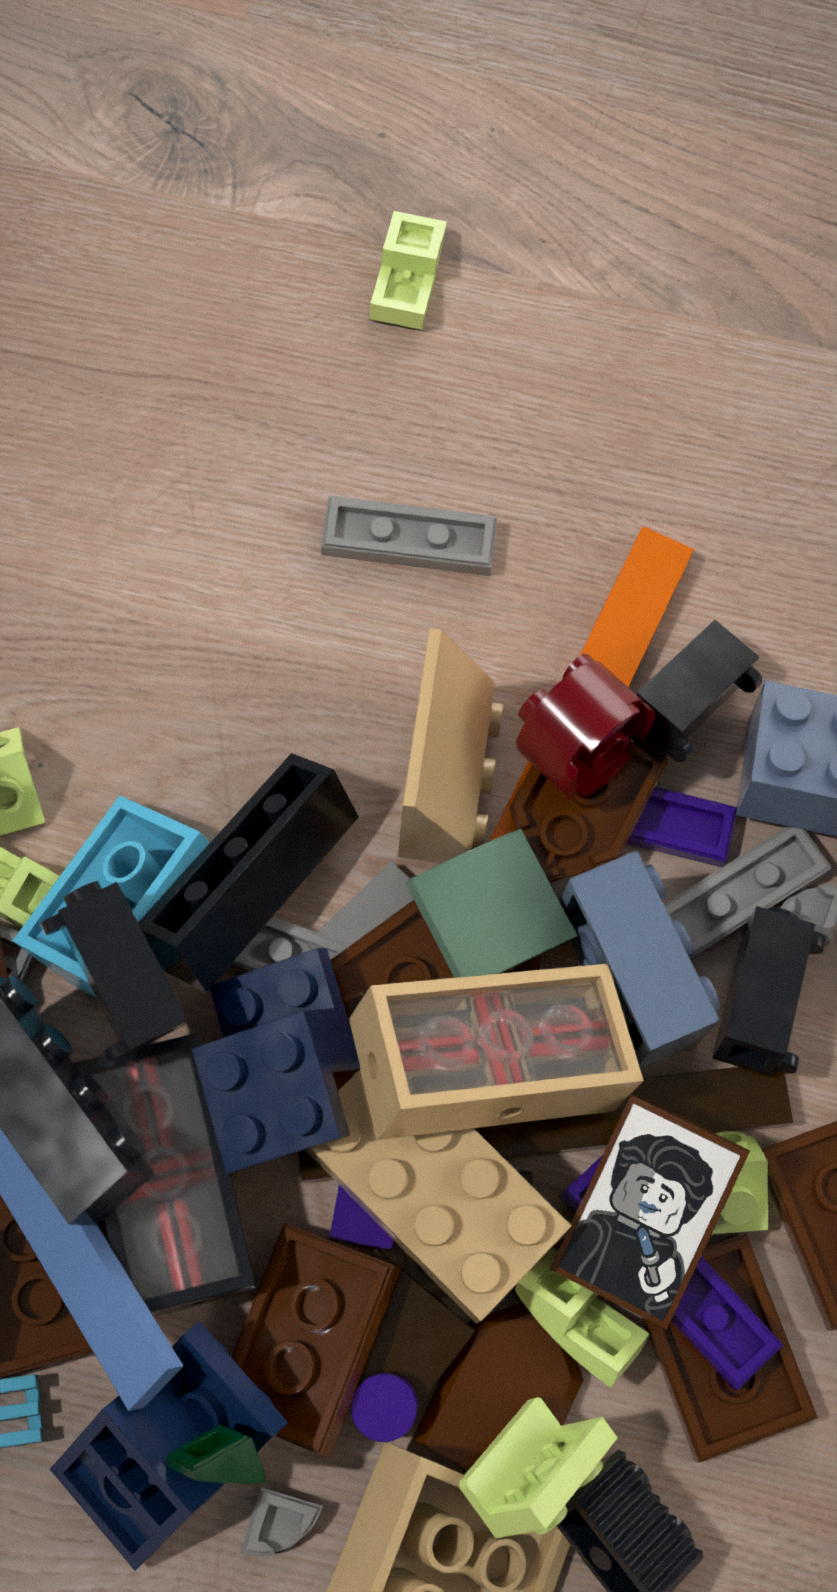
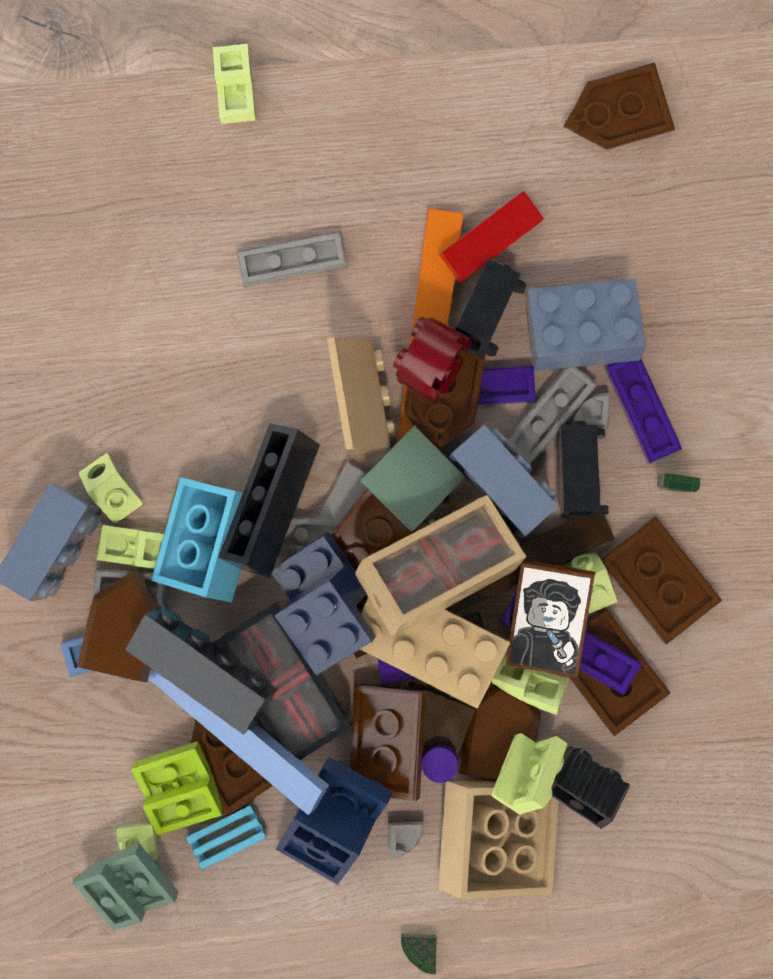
camera: 10 degrees left, 15 degrees up
(118, 966) = (218, 586): black brick -> none
(219, 1457) = (363, 824): dark green slope -> none
(727, 595) = (491, 237): none -> red tile

